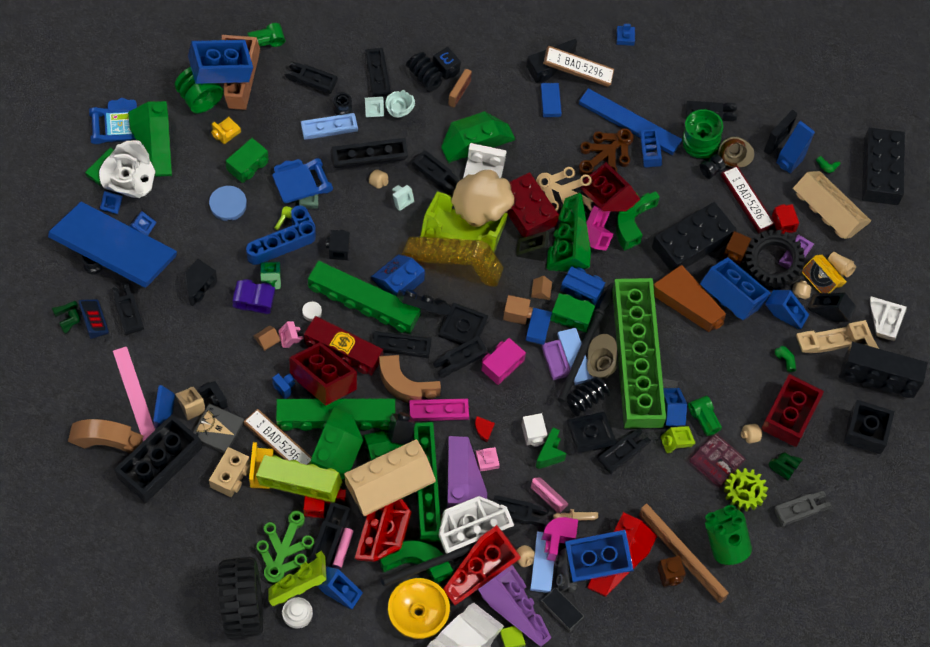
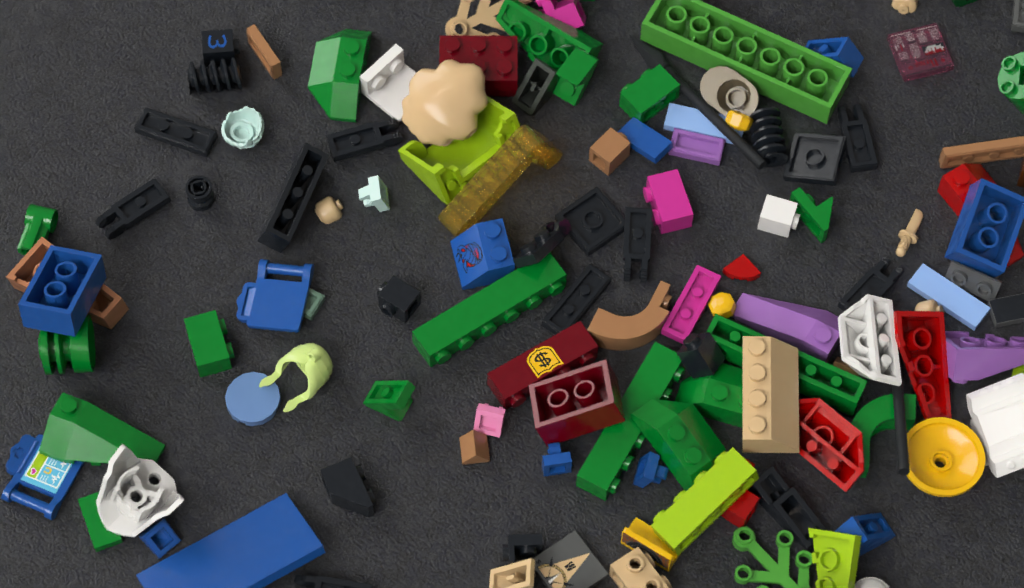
camera: 55 degrees left, 0 degrees up
(143, 223) = (217, 515): blue slope -> none
(225, 130) = (143, 348): yellow bracket -> none
(253, 296) = (410, 433): dark purple brick -> none
(255, 250) = (349, 363): blue beam -> none
(261, 223) = (313, 362): none -> yellowish green hair
(276, 438) = (624, 507): white tile -> none
(286, 213) = (312, 335): lime hand -> none
(308, 441) = (649, 470): none -> blue tile
(311, 310) = (470, 378): white tile -> none
(329, 126) = (216, 226): light blue tile -> none
(342, 548) = (822, 514): bright pink piece -> none
(374, 107) = (226, 159): light aqua tile -> none
(449, 428) = (722, 305): none -> yellow tile
(487, 459) = (784, 287): bright pink tile -> none
(541, 288) = (593, 112): medium nougat slope -> none
(548, 494) = (867, 246): bright pink slope -> none
(554, 261) = (575, 75): none -> green slope
(557, 532) = (928, 262): dark pink brick -> none
(582, 285) = (621, 65): blue brick -> none
(585, 371) = (738, 120): none -> yellow tile
(677, 438) = (873, 77): lime bracket -> none
(703, 411) = (861, 31): green piece -> none
(748, 482) = (982, 50): lime gear -> none

